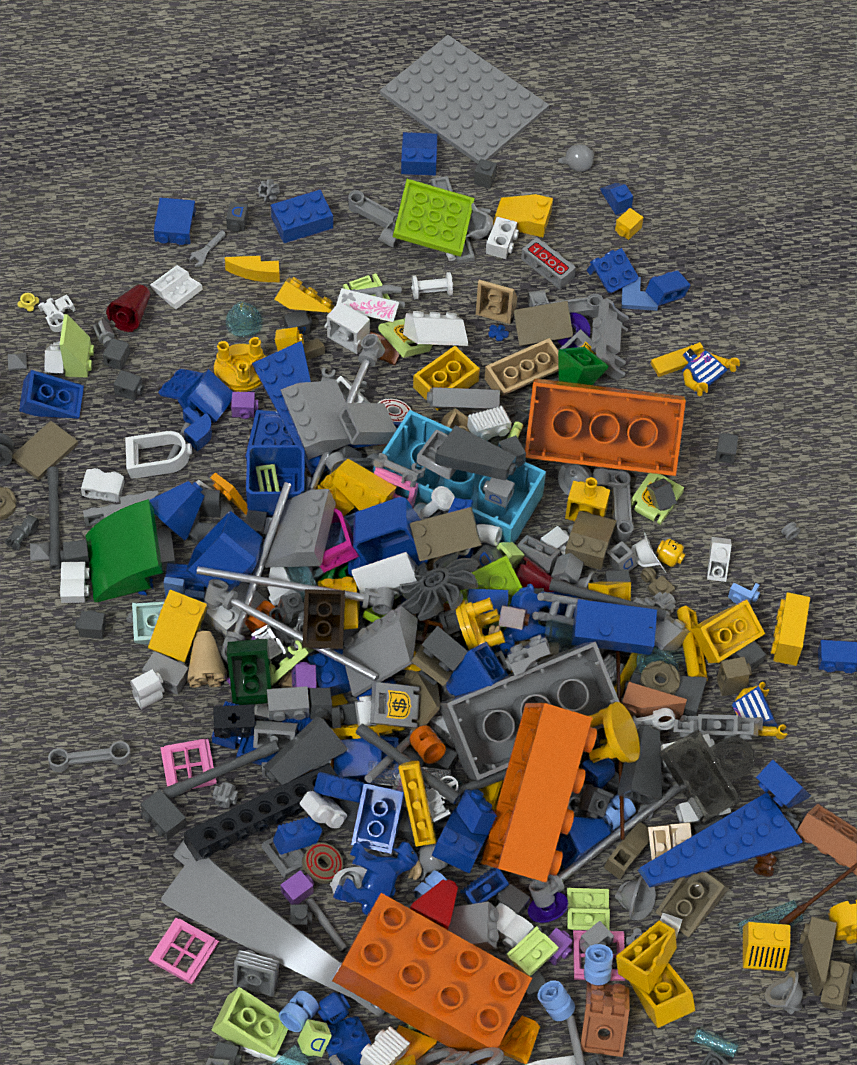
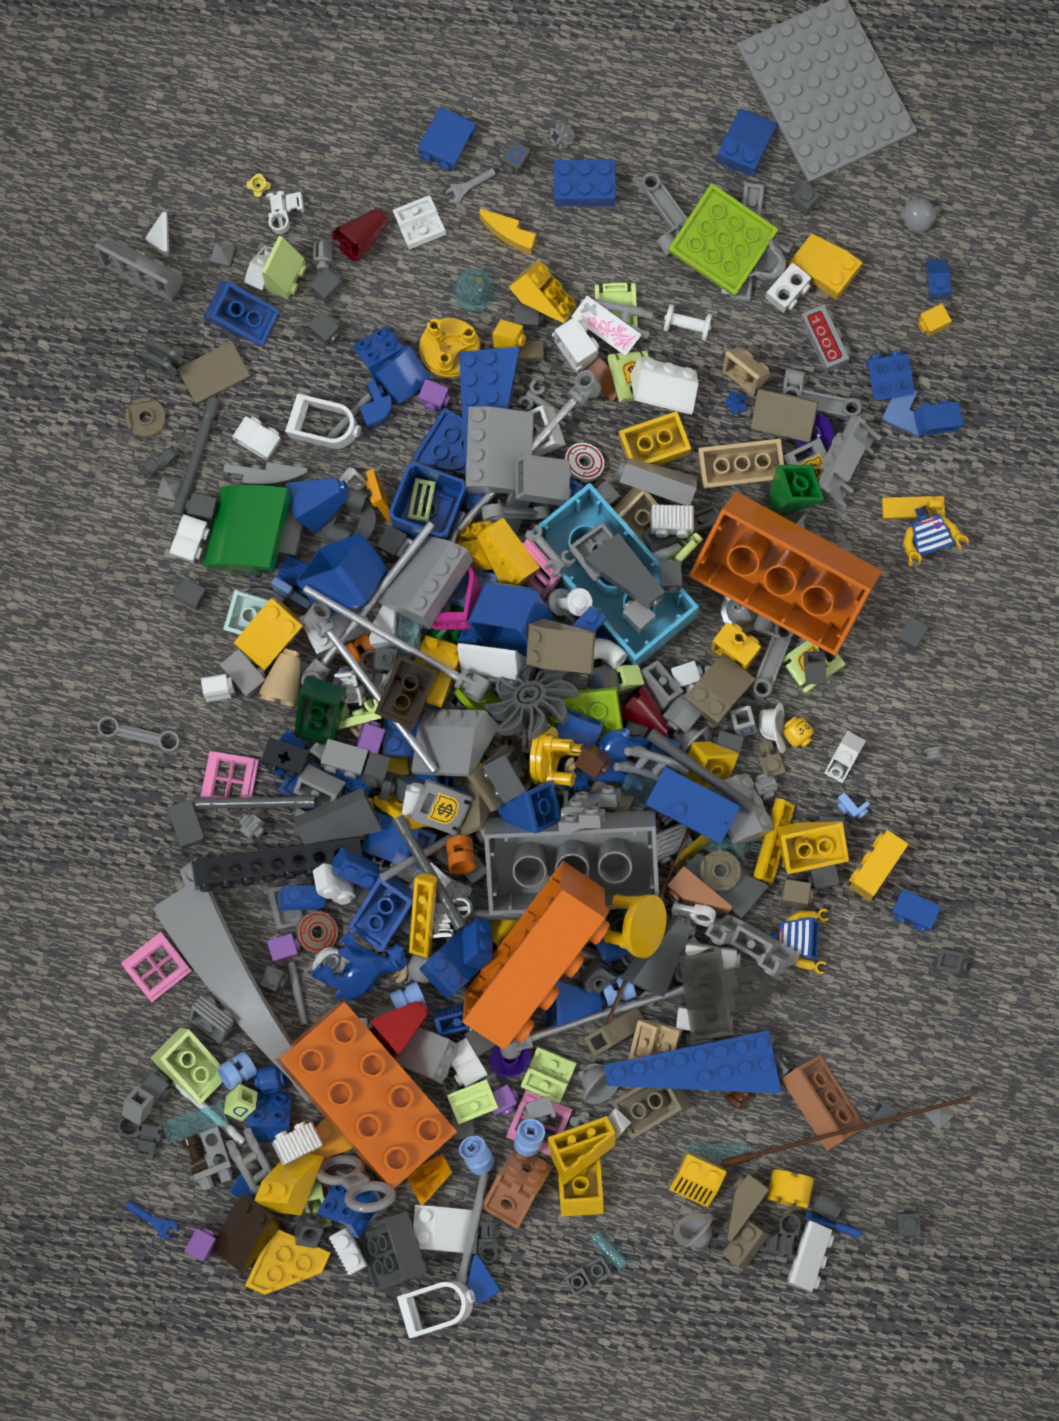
camera: 25 degrees right, 20 degrees up
(782, 785) = (788, 1029): blue slope -> none

